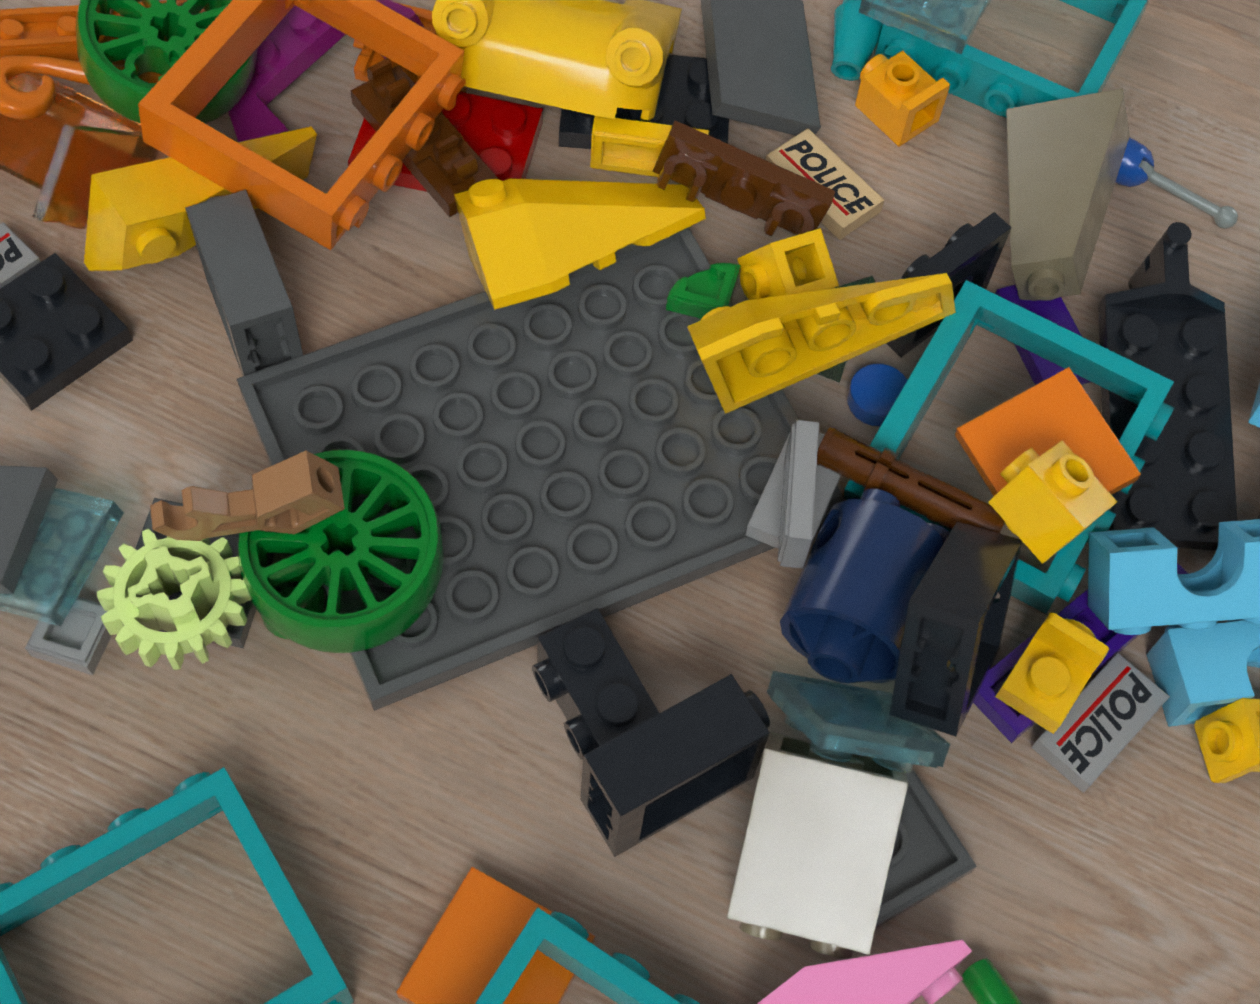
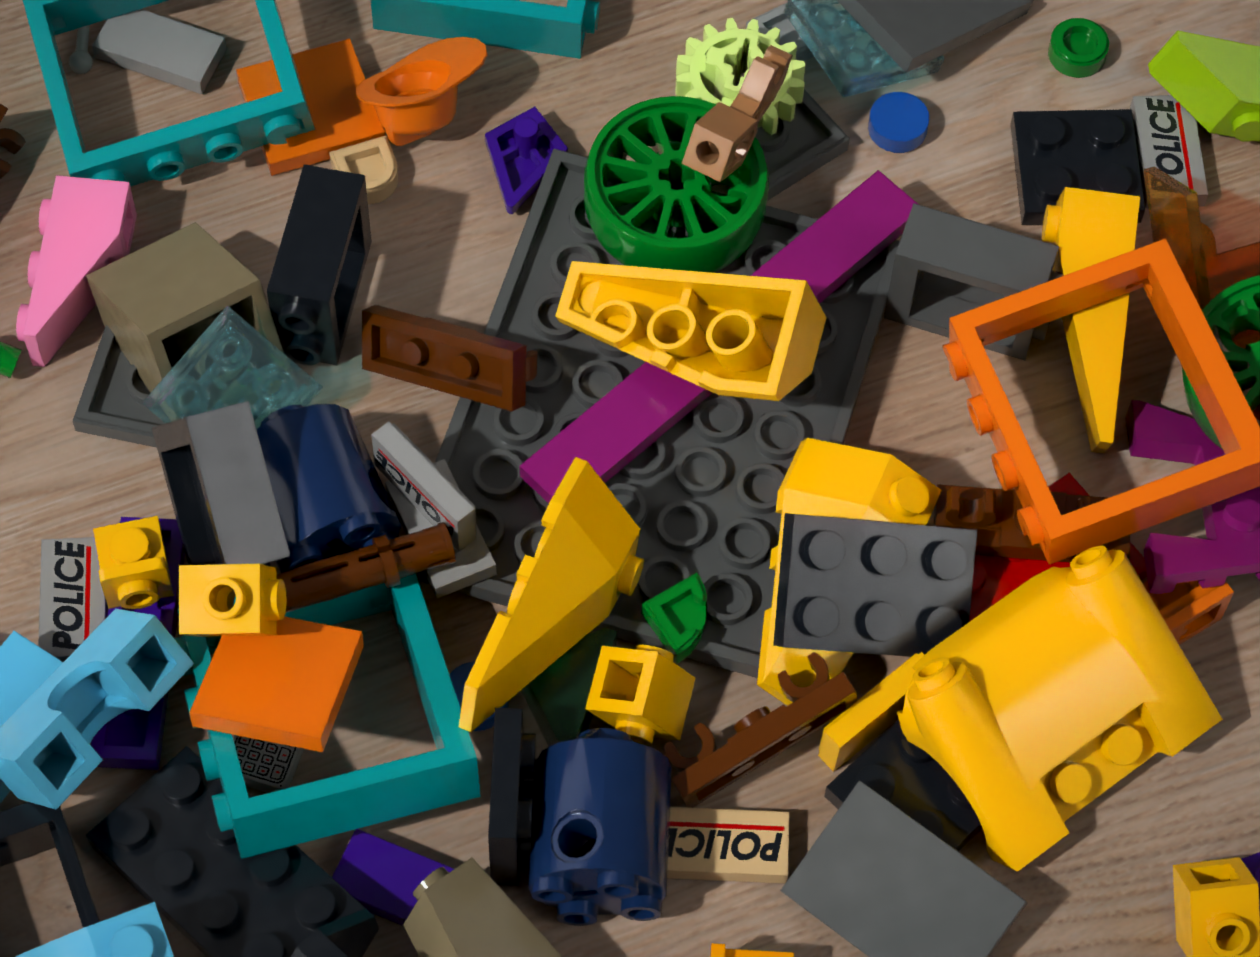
camera: 135 degrees right, 0 degrees up
(103, 474) = (898, 122): none -> blue tile
(391, 736) = (521, 154): none -> dark purple piece
(396, 862) = (422, 88): none -> orange piece
(448, 424) = (656, 400): none -> magenta tile
(477, 402) = (705, 327): none -> yellow wedge
(519, 856) = (375, 161): none -> tan tile
(577, 175) = (872, 585): none -> black plate
(591, 682) = (423, 276): black brick -> none
(659, 598) = (446, 357): none -> reddish brown plate
(904, 210) = (601, 828): none -> dark blue cylinder

